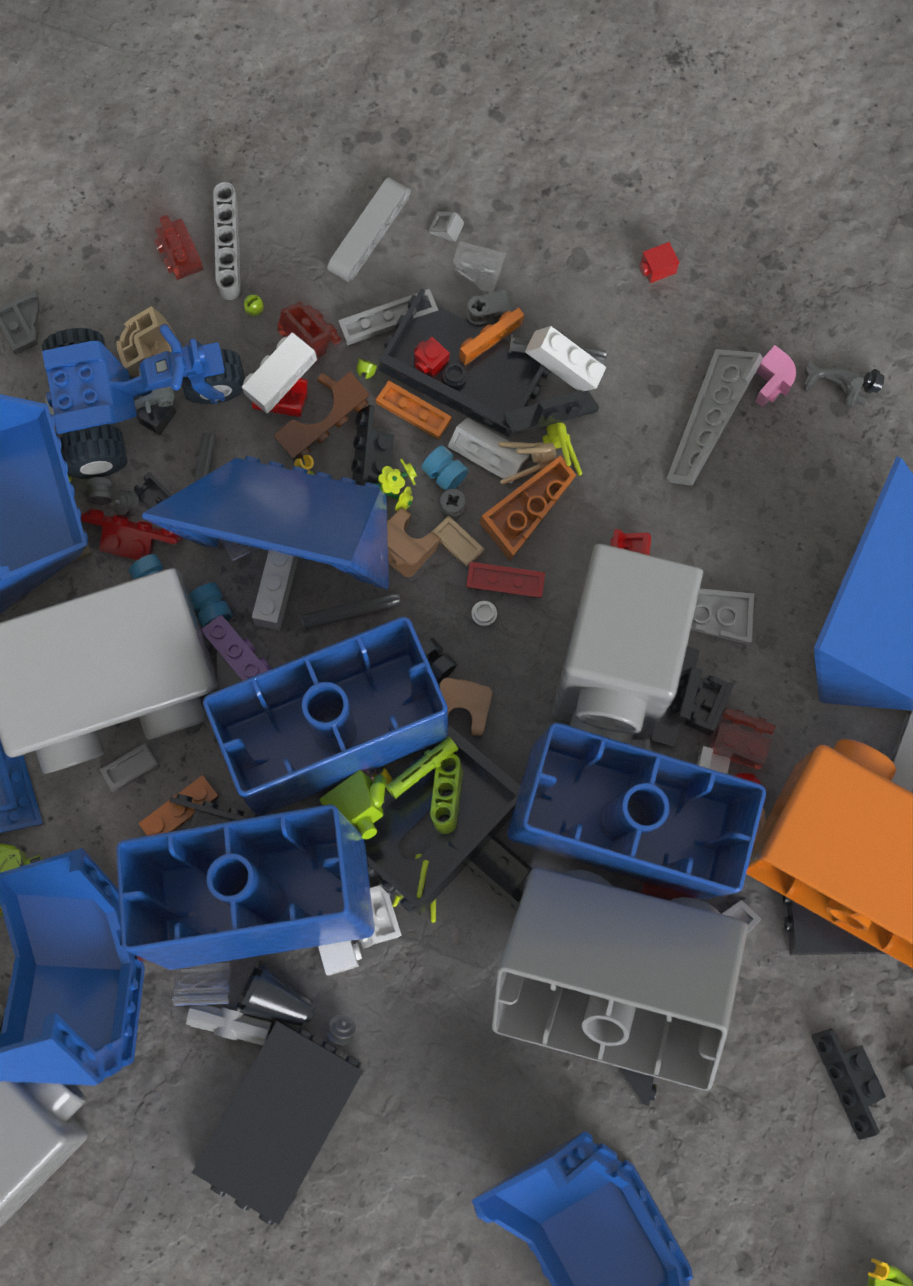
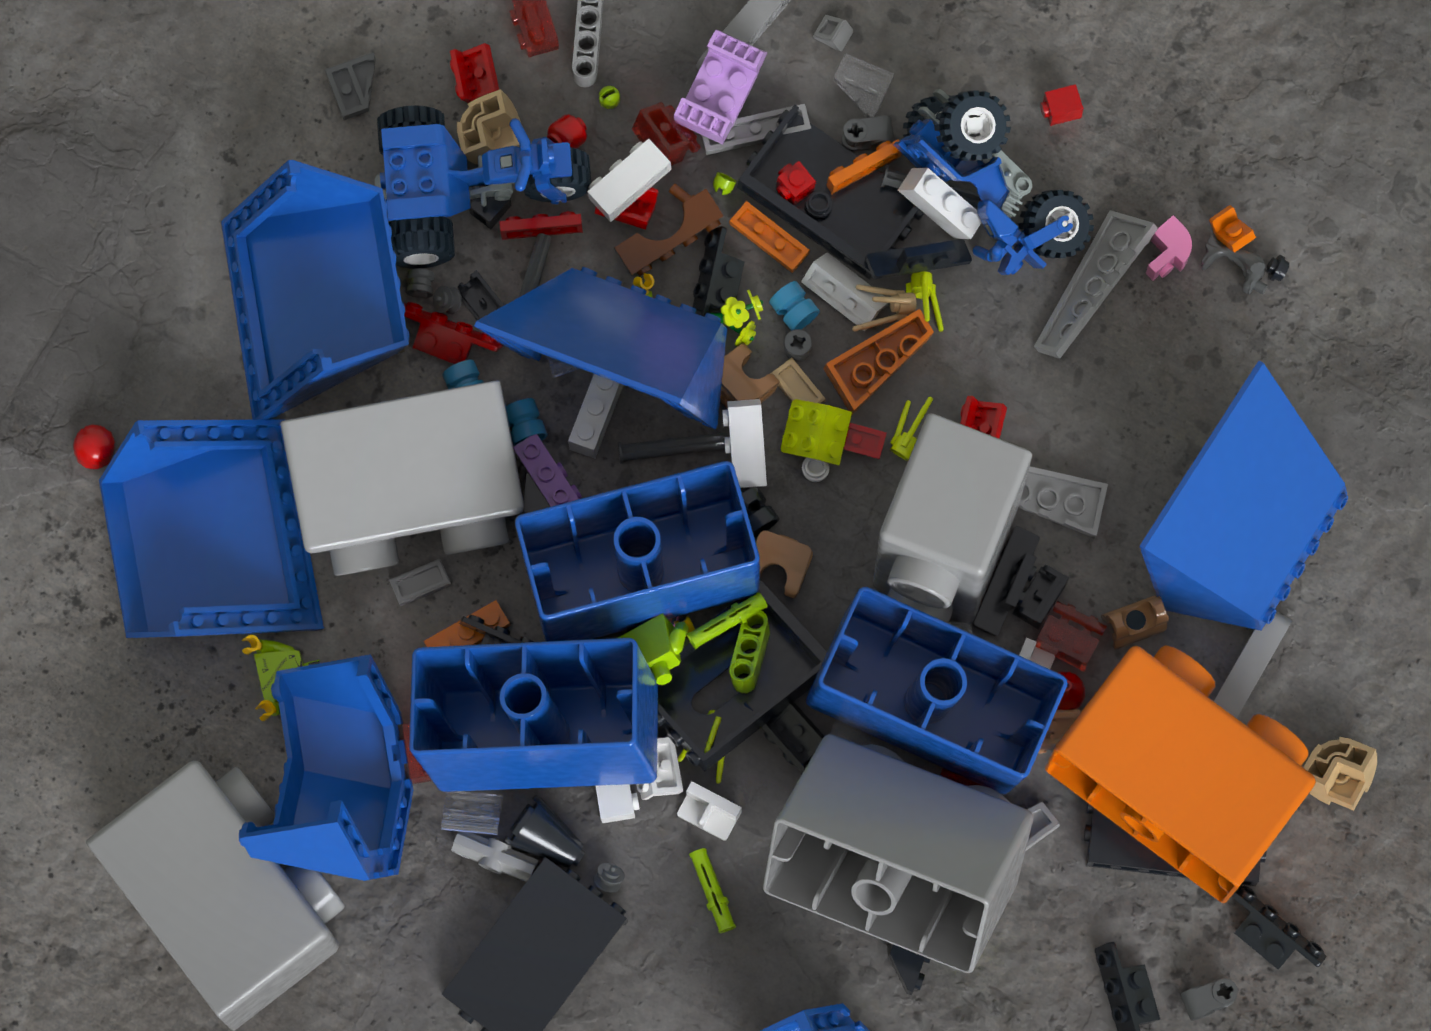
camera: 10 degrees right, 0 degrees up
(127, 296) = (474, 72): none -> red bracket
(185, 430) = (517, 228): none -> red plate
(220, 334) = (569, 130): none -> red head
(352, 281) = (720, 87): none -> lavender plate
(417, 596) = (746, 441): none -> white brick
(428, 952) = (709, 811): none -> white panel
(457, 1057) = (724, 922): none -> lime pin
(480, 579) = (816, 431): none -> neon yellow bracket
(563, 581) = (903, 444): none -> neon yellow plant
(578, 298) = (962, 142): none -> piece
(803, 715) = (1137, 621): none -> medium nougat piece
(826, 353) = (1231, 230): none -> orange bracket

